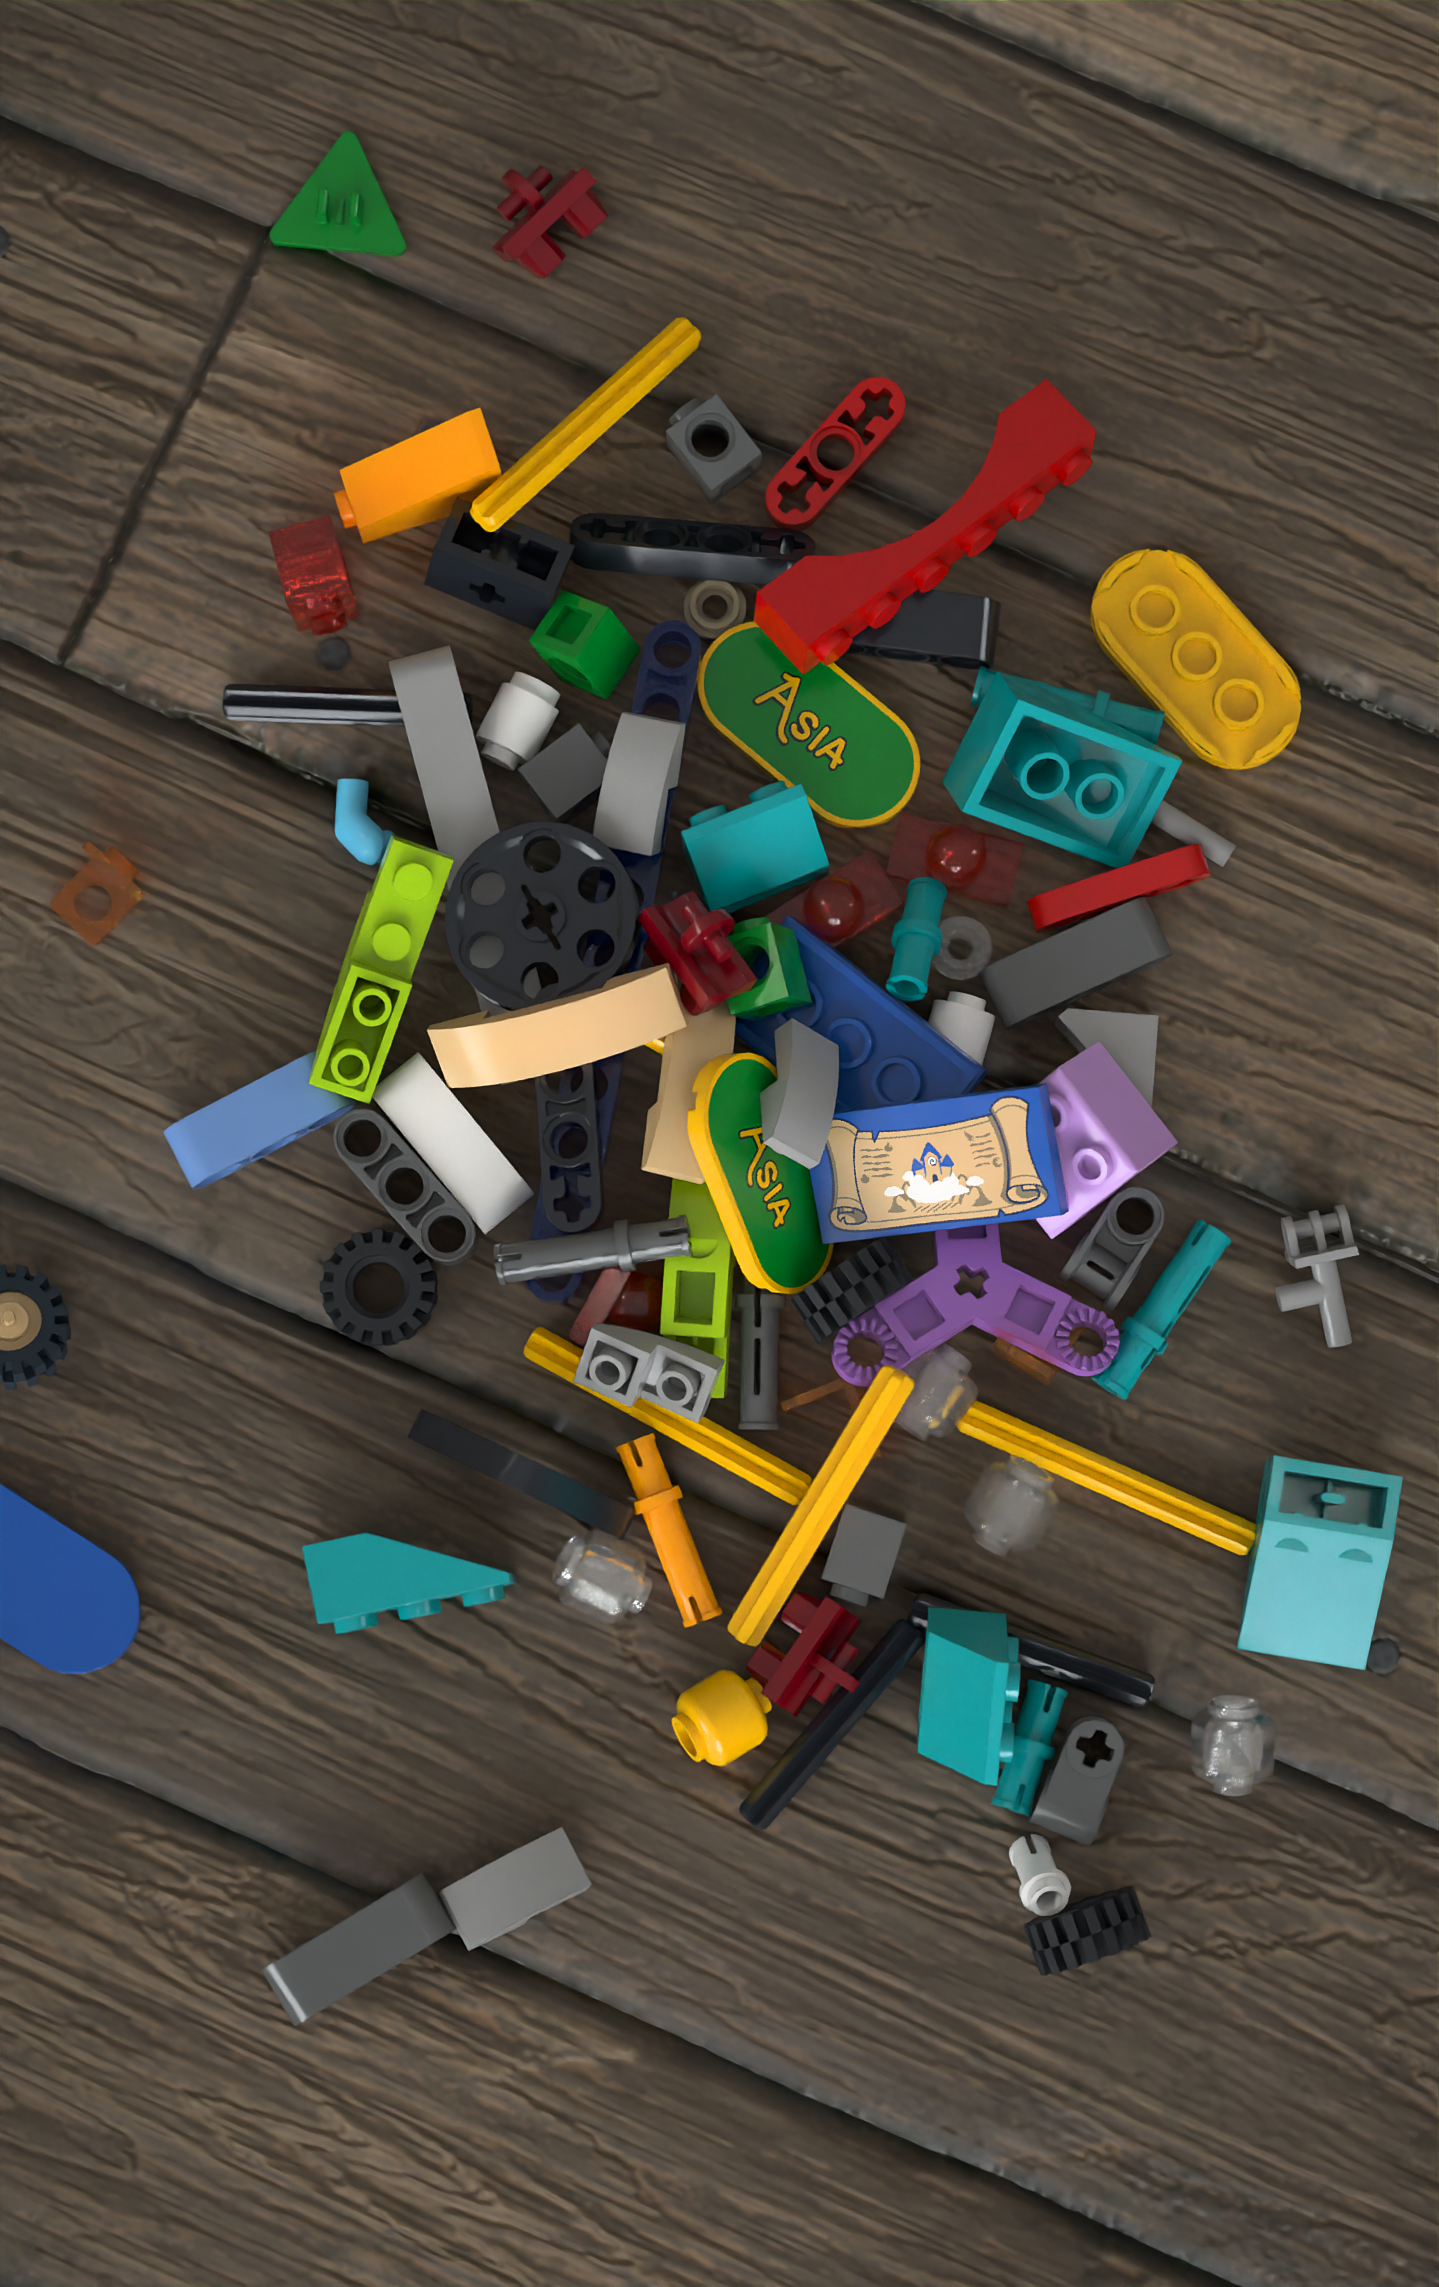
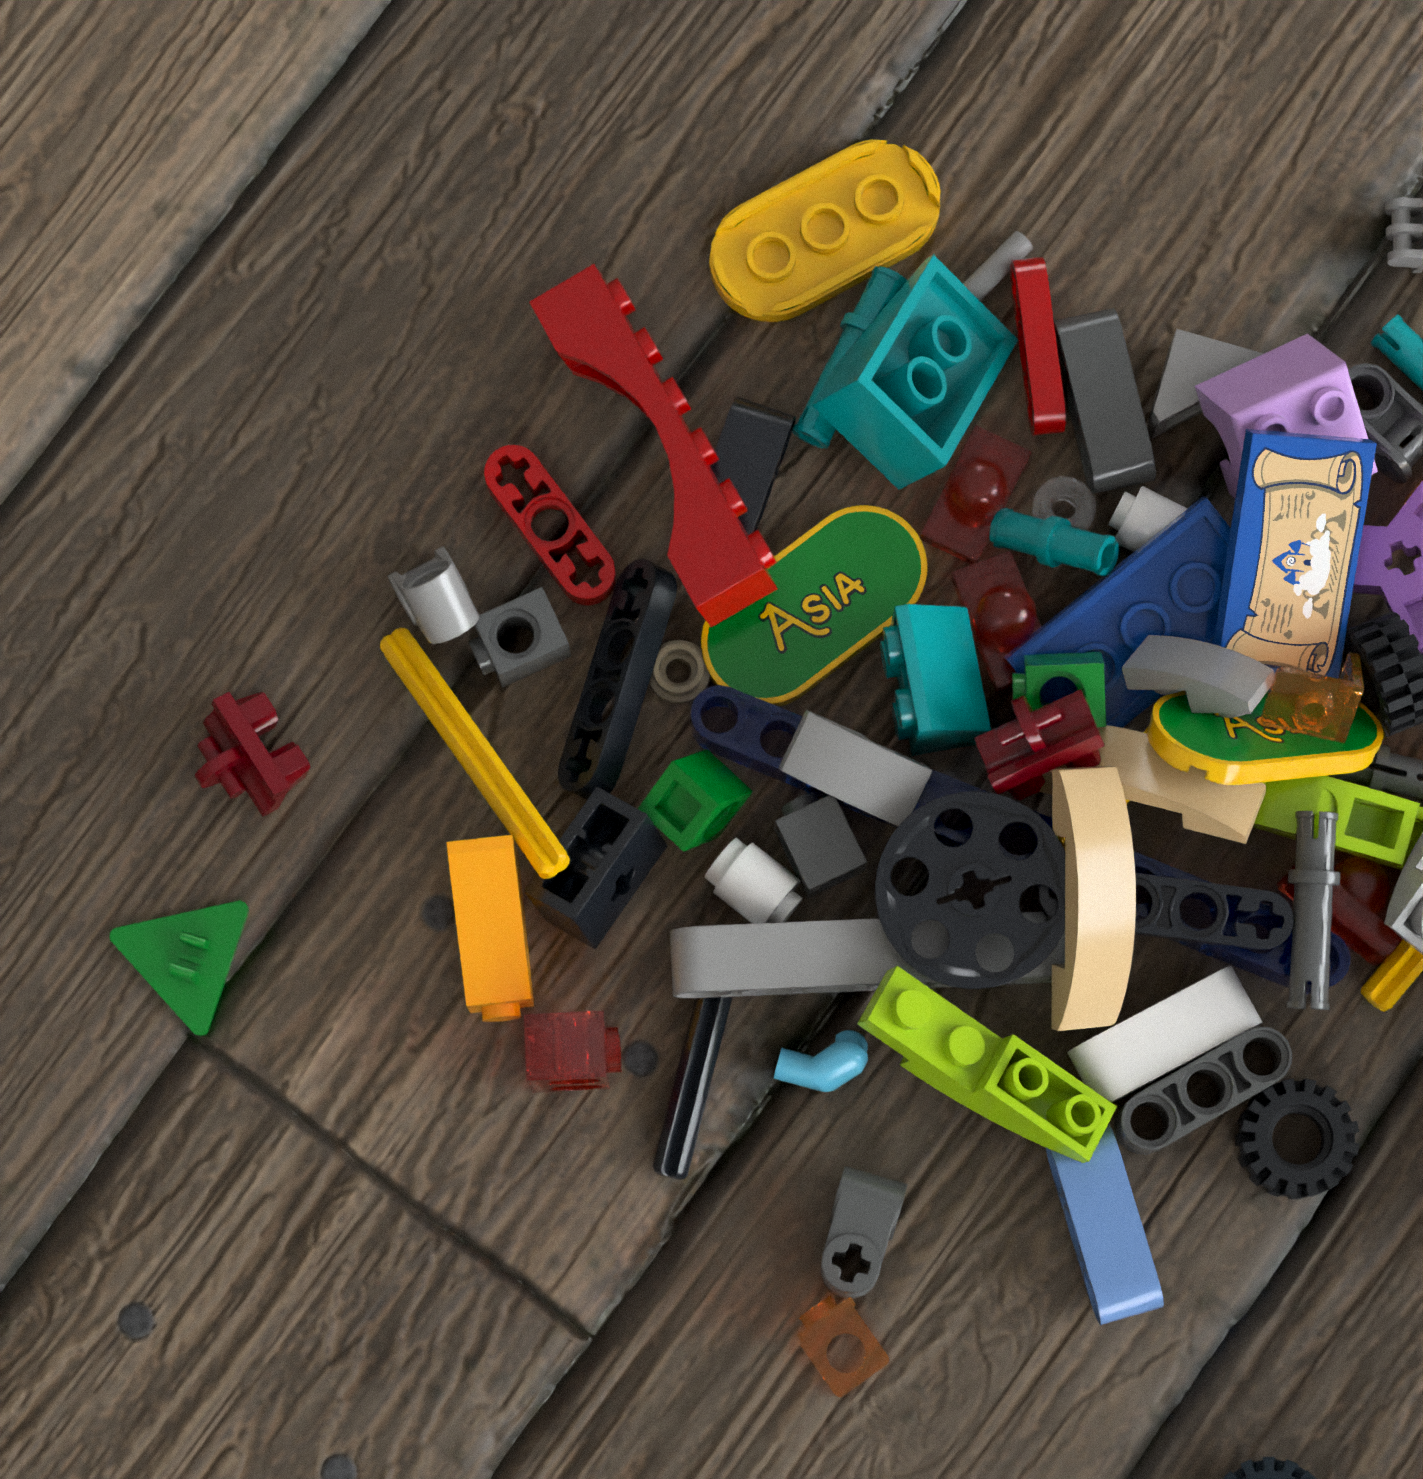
camera: 80 degrees left, 5 degrees down
(218, 890) = (863, 1222): none -> dark grey piece
(732, 357) = (436, 598): none -> light grey piece
(794, 1210) = (1315, 702): none -> clear orange bracket

